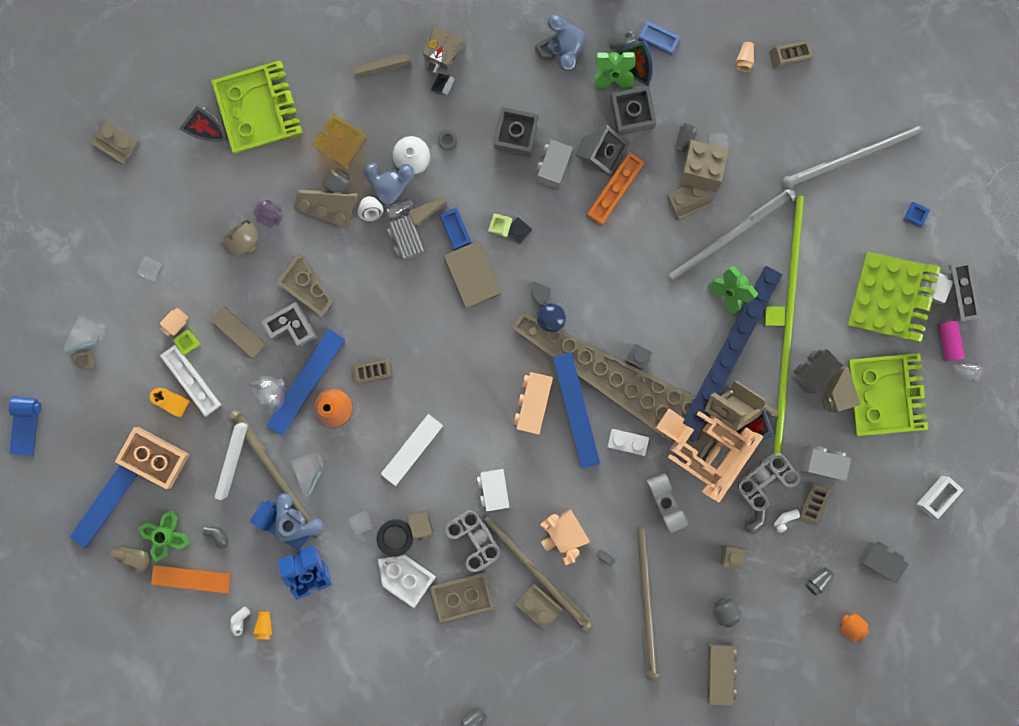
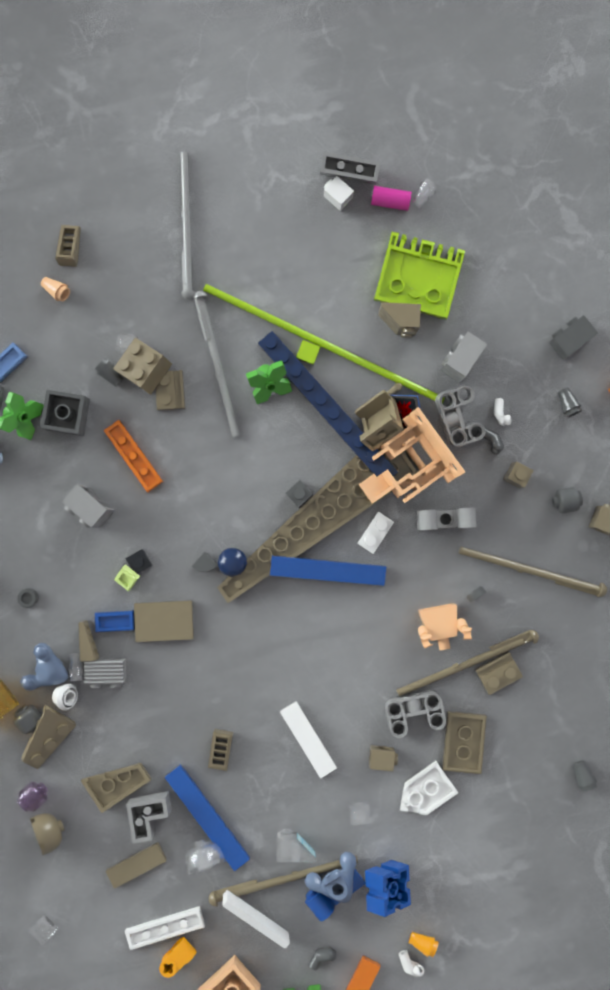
camera: 70 degrees left, 0 degrees up
(173, 322) = (102, 925): light nougat brick -> none
(186, 342) = (127, 918): lime tile -> none
(340, 408) = (241, 801): orange cone -> none
(380, 537) = (390, 801): black tyre -> none
(413, 152) = (27, 635): white cylinder -> none
(494, 490) = (374, 676): white piece -> none
(516, 131) = (43, 530): dark grey brick -> none
(533, 402) = (306, 610): light nougat brick -> none
(602, 149) = (91, 454): dark grey slope -> none
(643, 62) = (22, 386): shield -> none
(816, 371) = (373, 332): clear smoke brick -> none
(823, 500) = (495, 371): dark tan slope -> none
(889, 295) = (328, 238): lime hinge -> none
(916, 214) = (262, 186): blue tile -> none
(939, 497) = (531, 263): white piece -> none

